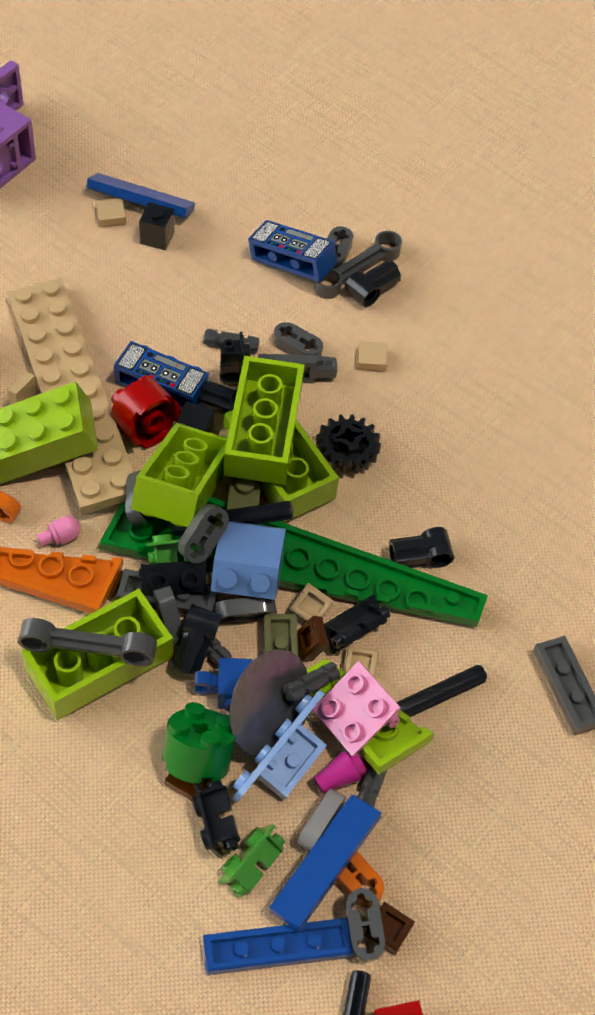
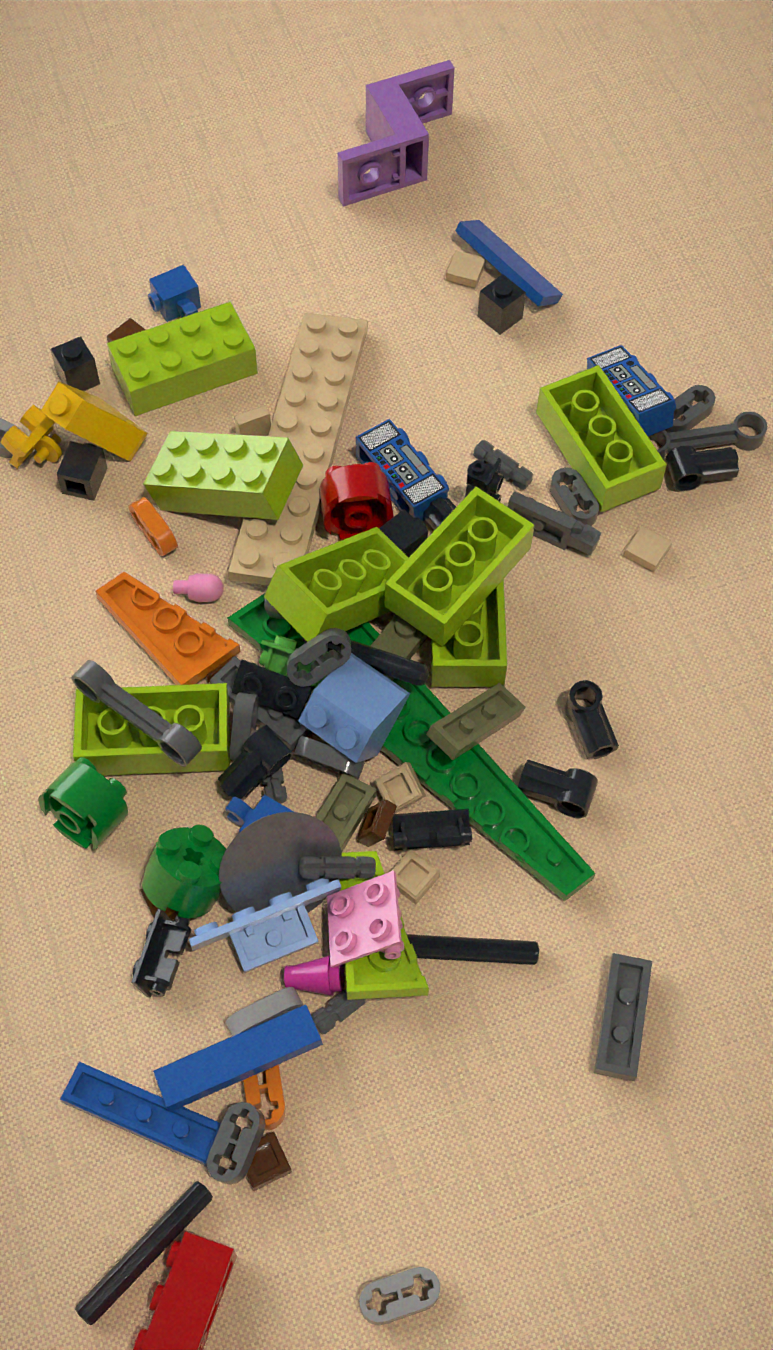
camera: 35 degrees right, 5 degrees up
(82, 736) = (85, 804): none -> green brick
(241, 868) = (157, 1019): bright green hinge -> none
(292, 290) = (600, 437): none -> lime brick
(338, 529) = (475, 721): none -> olive plate
(345, 443) = (553, 634): black gear -> none
(413, 491) = (591, 722): none -> black piece
(542, 960) = (396, 1285): none -> light grey beam

